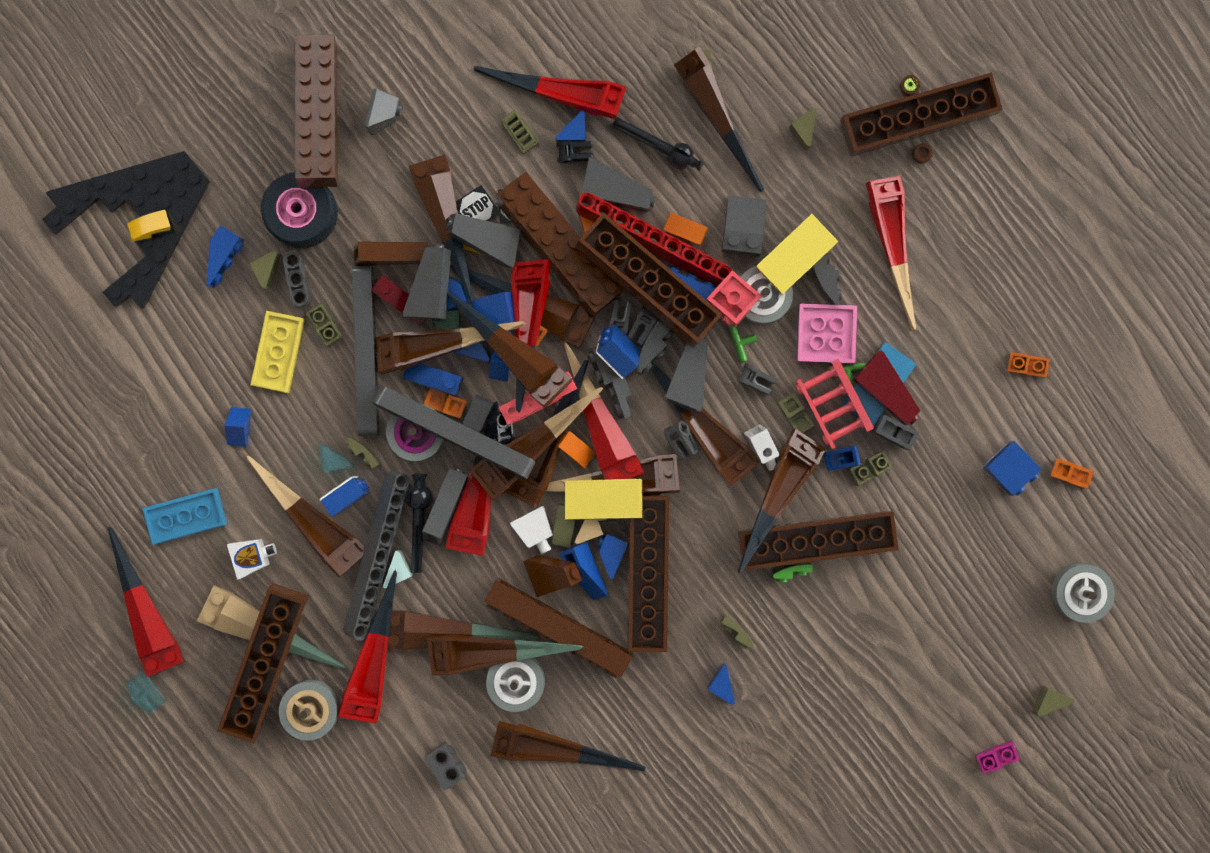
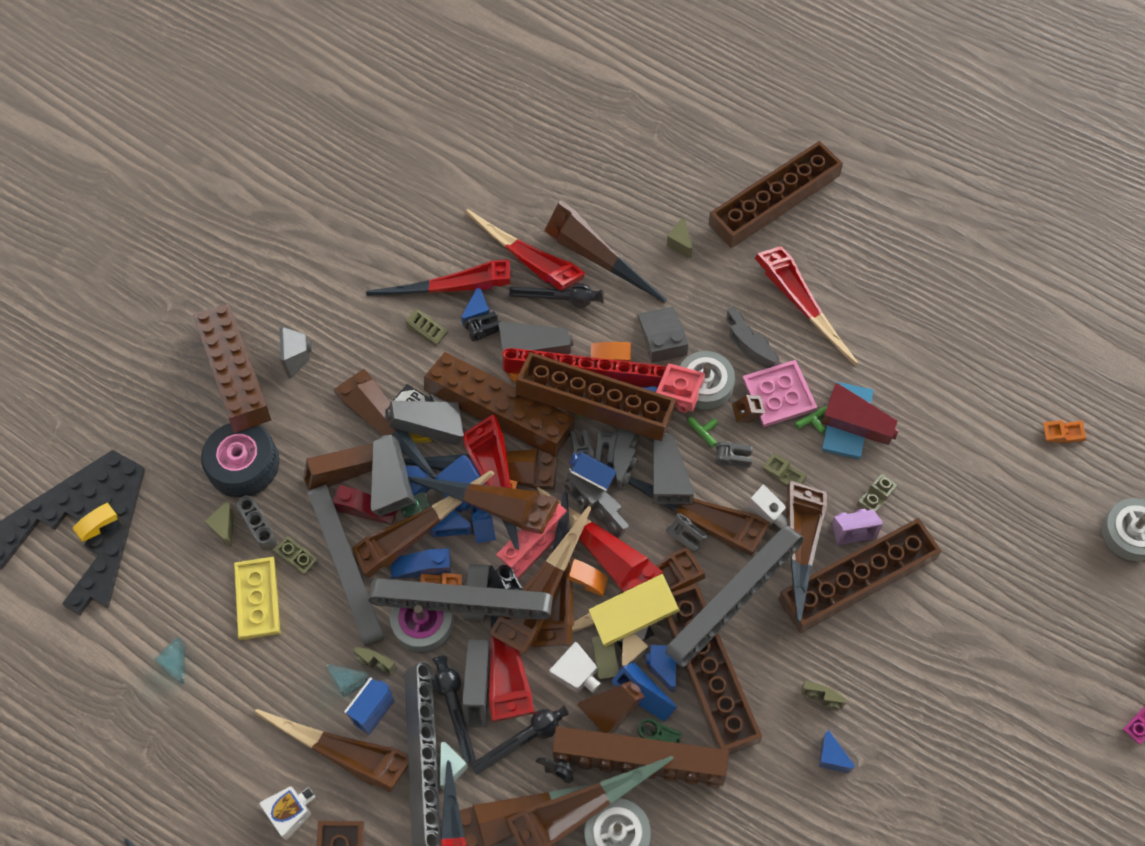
camera: 20 degrees left, 25 degrees down
(184, 516) = (205, 797): dark azure tile -> none
(187, 386) = (173, 659): none -> clear light blue slope
(221, 252) = (174, 521): blue slope -> none
(238, 426) = (237, 684): blue slope -> none
(487, 613) = (559, 769): none -> black plate
(488, 567) = (542, 725): none -> black piece
(585, 612) = (662, 733): none -> dark green piece
(659, 107) = (546, 266): none -> red plate
(696, 523) = (734, 596): none -> dark grey beam
(786, 572) = (845, 618): bright green slope -> none
(789, 340) = (748, 408): none -> reddish brown brick
(796, 254) = (720, 332): light yellow tile -> none
(835, 493) = (856, 527): none -> lavender slope
(842, 458) = (847, 493): blue slope -> none
(846, 388) = (834, 440): coral fence -> none
(895, 432) = (884, 451): dark grey brick -> none
(910, 85) = (754, 176): tile -> none
(922, 153) = (792, 225): reddish brown tile -> none
(1012, 469) = (1008, 445): blue piece -> none
(1028, 365) = (976, 356): orange slope -> none

